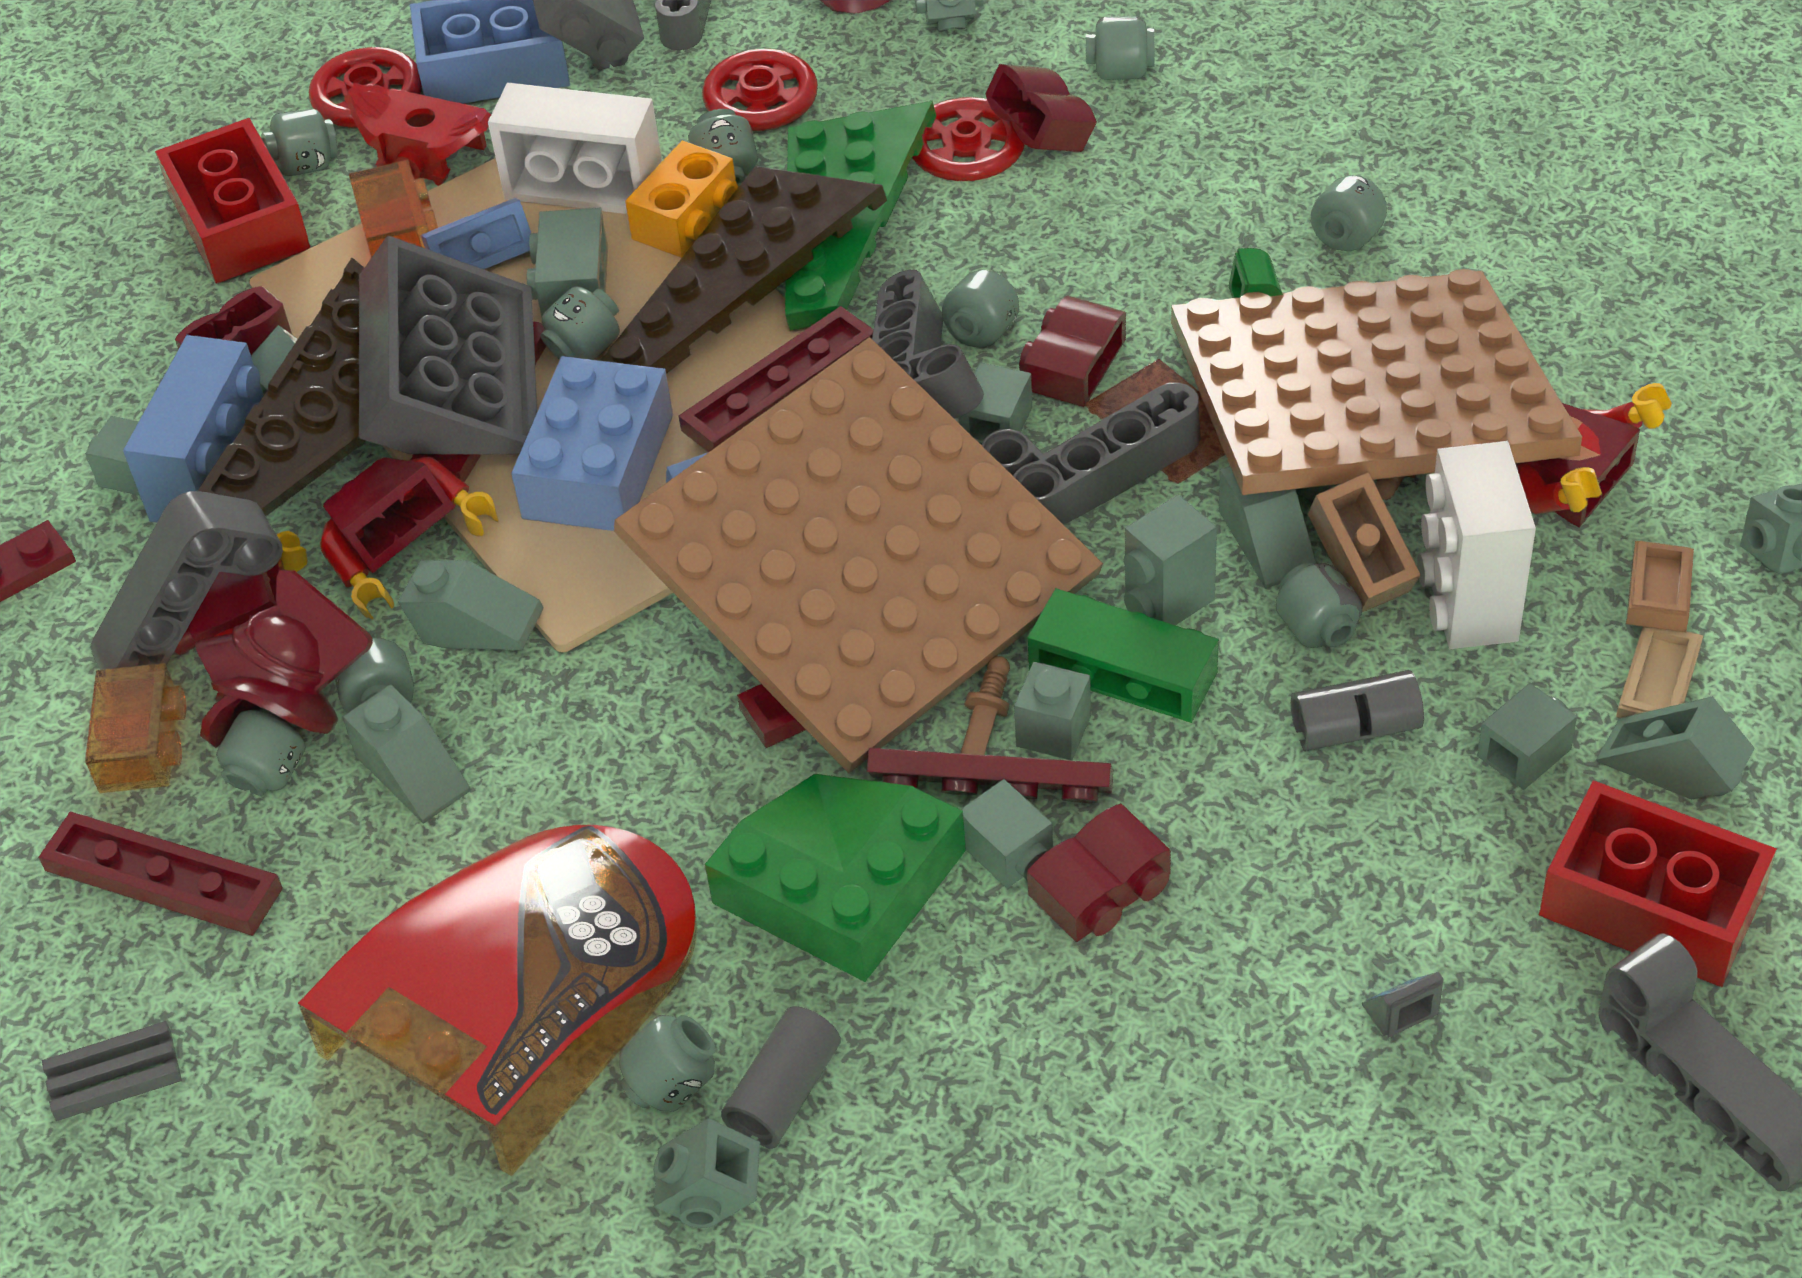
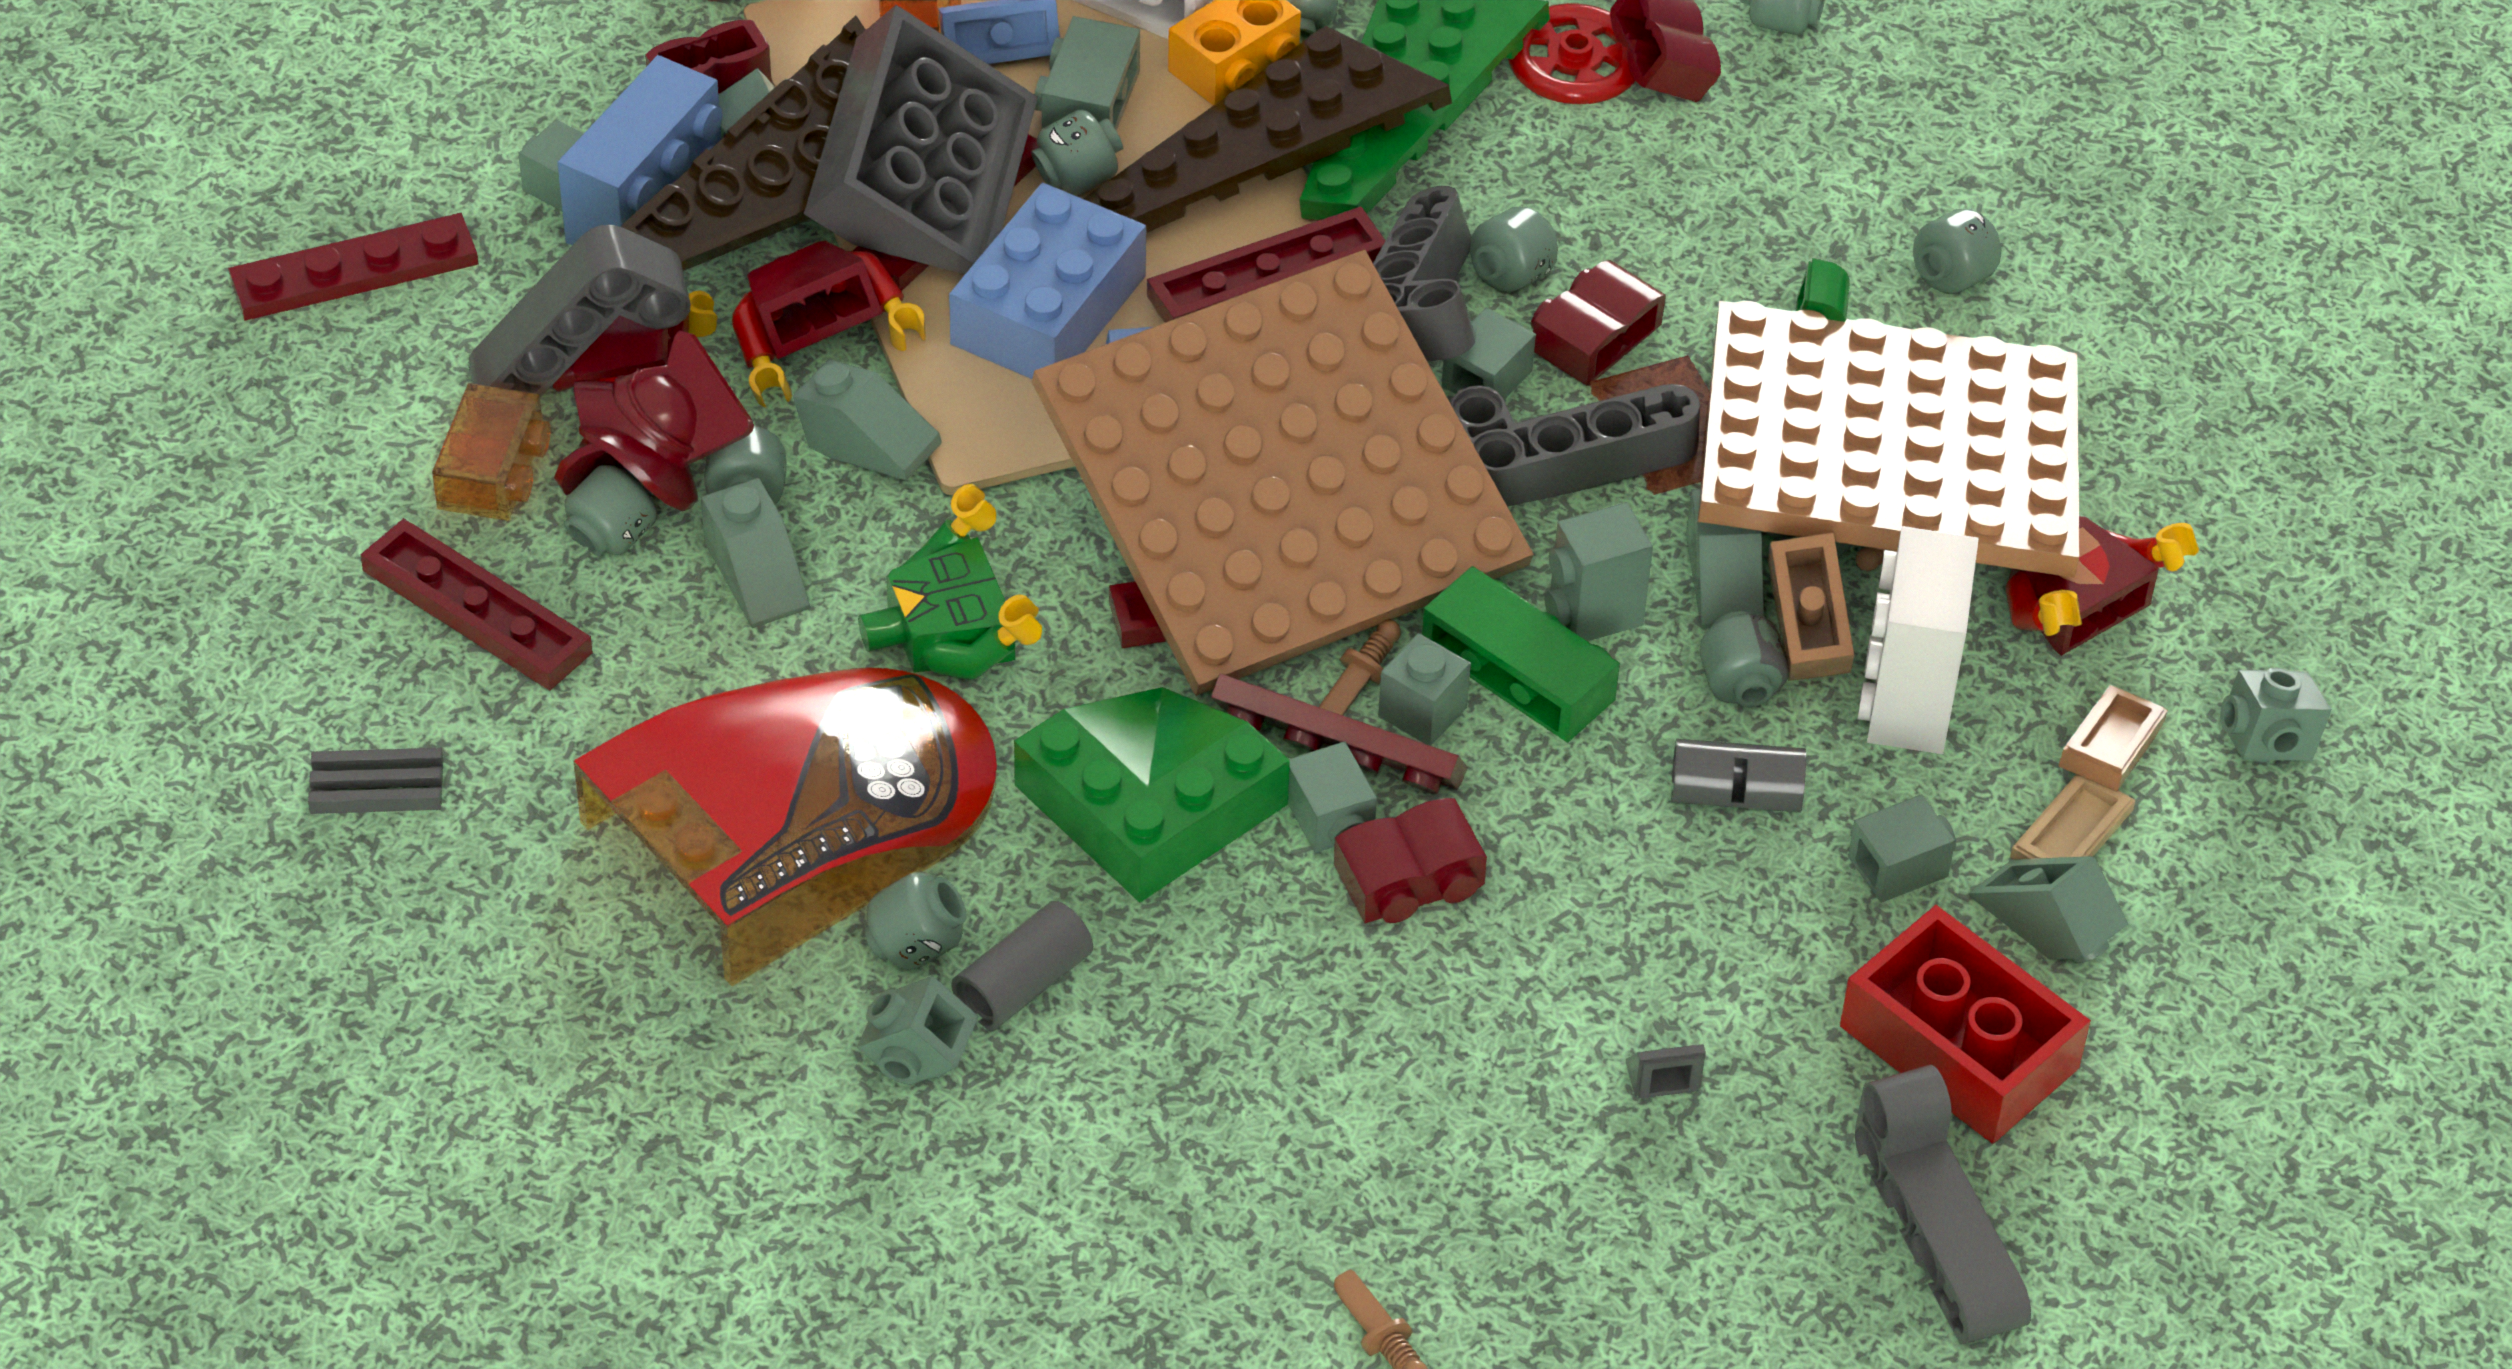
camera: 10 degrees right, 0 degrees up
(599, 751) = (949, 602): none -> green torso

